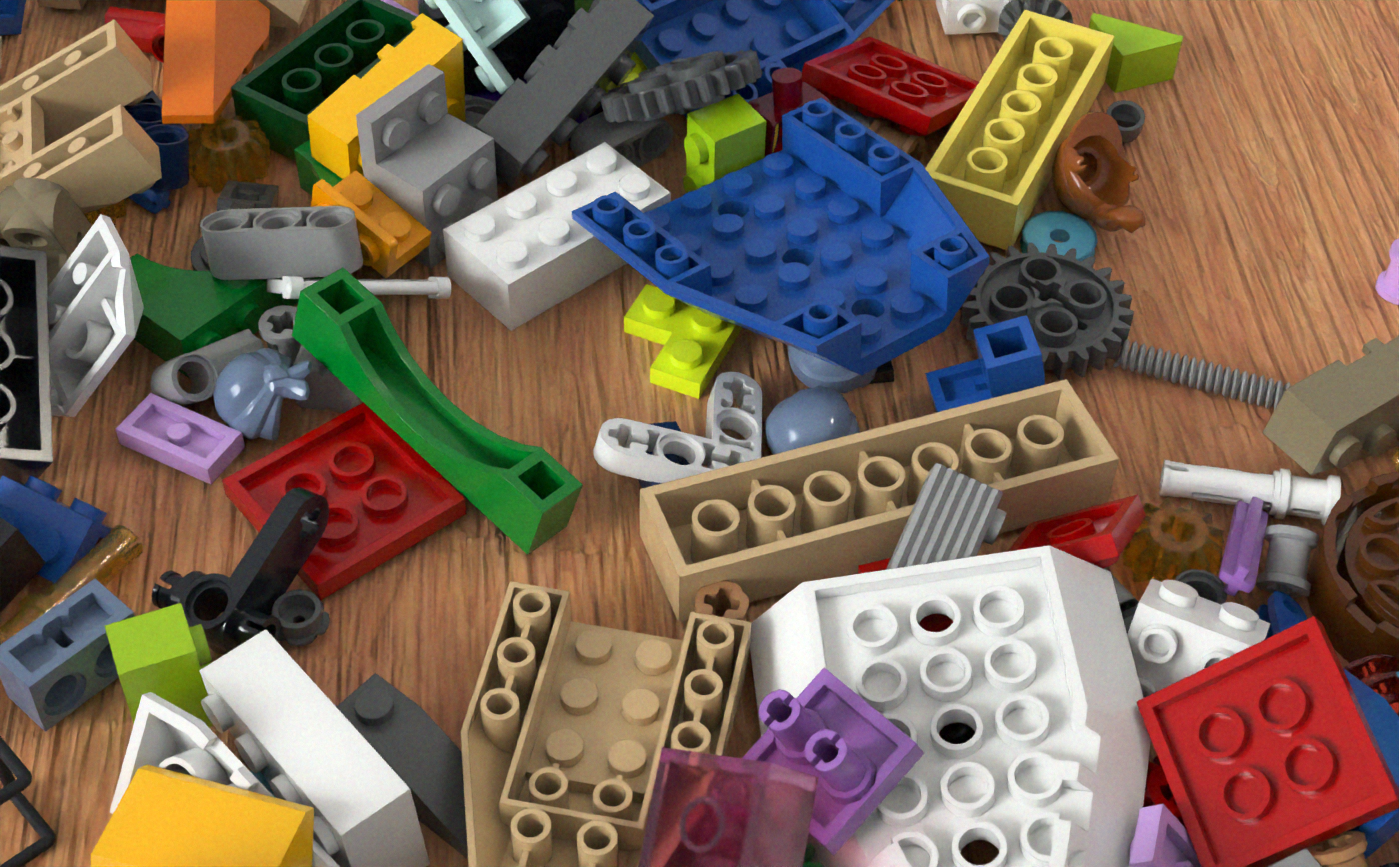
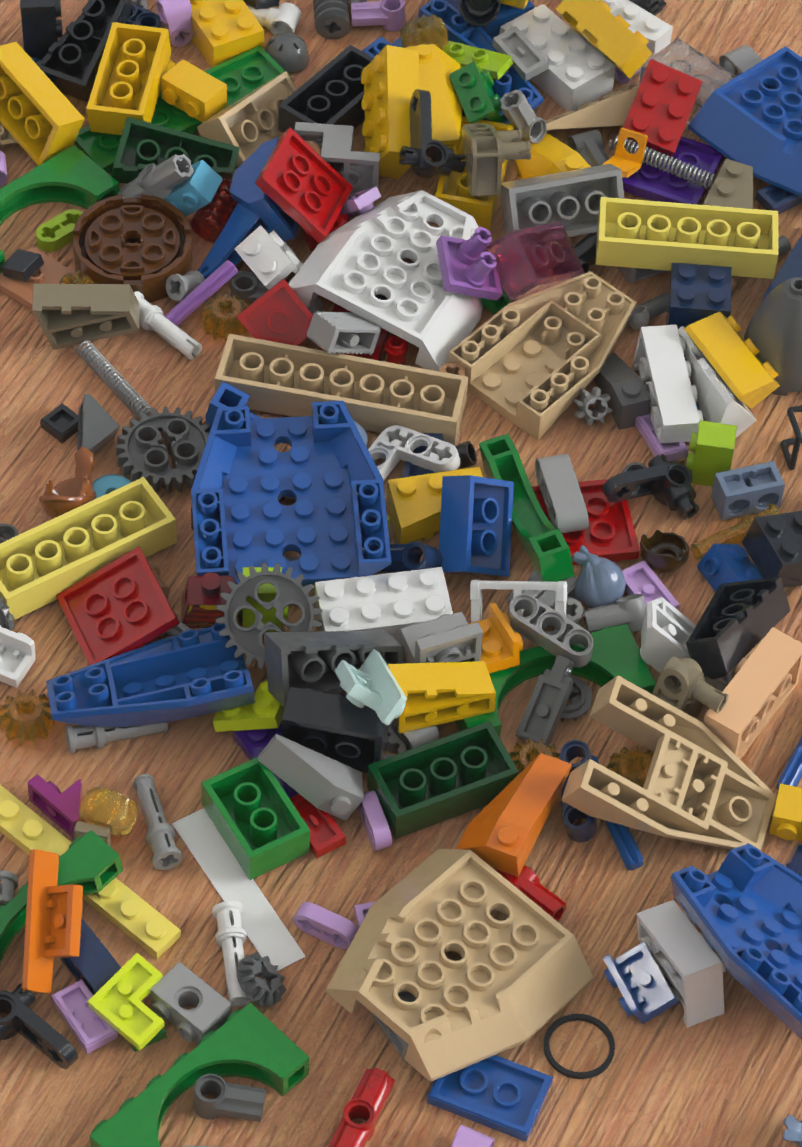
camera: 150 degrees left, 5 degrees up
(180, 496) = (664, 551): none -> dark brown hair
(396, 479) = (561, 493): none -> light grey beam
(444, 690) = (590, 398): none -> light grey gear
(499, 354) = (476, 525): none -> blue slope
(563, 295) = (407, 557): none -> dark blue piece
(603, 379) = (416, 504): none -> yellow wedge
(609, 518) = (467, 454): none -> black hinge
(1171, 280) = (95, 425): none -> dark grey slope
(1225, 297) = (60, 423): none -> black tile

